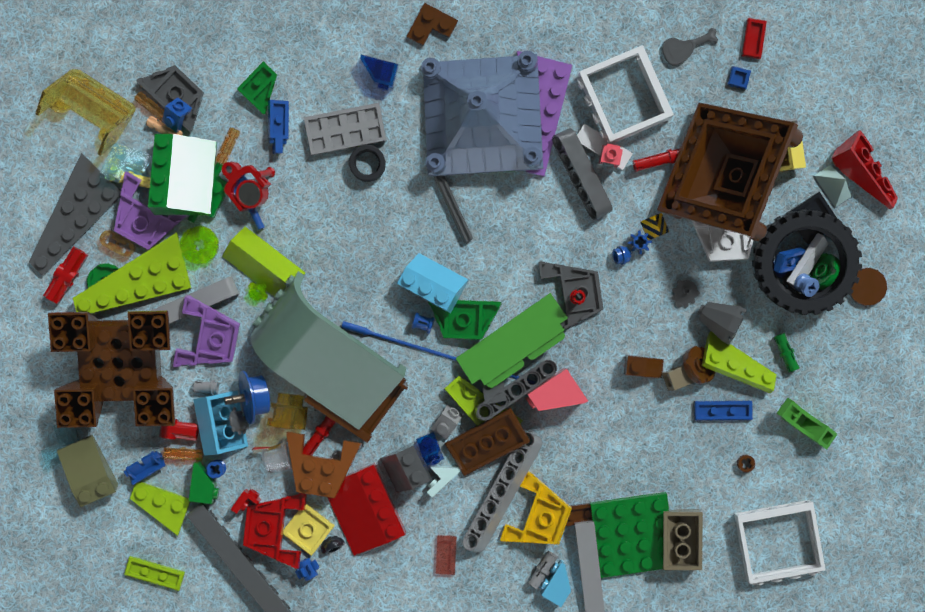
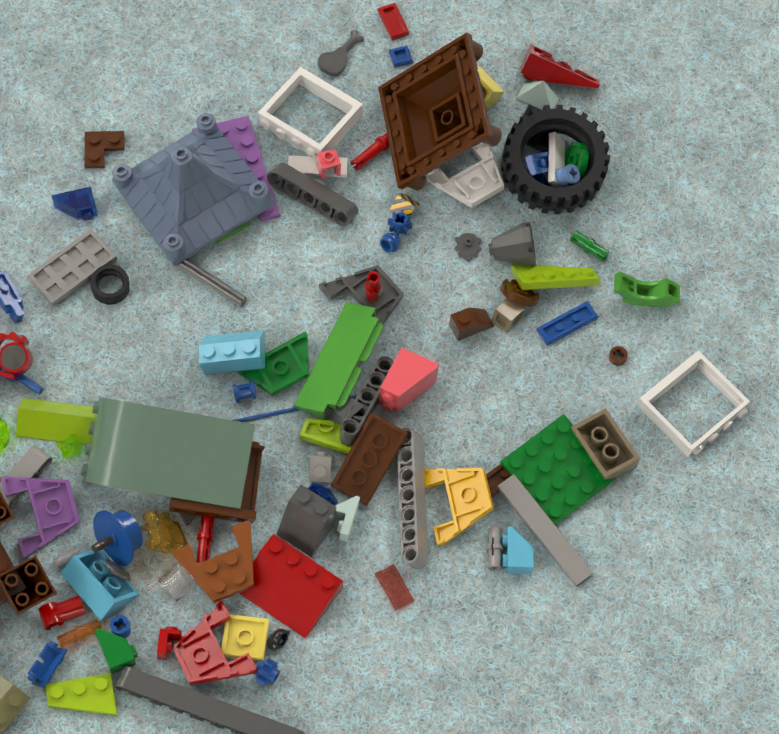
camera: 35 degrees left, 25 degrees down
(870, 288) = (624, 159): reddish brown tile -> none

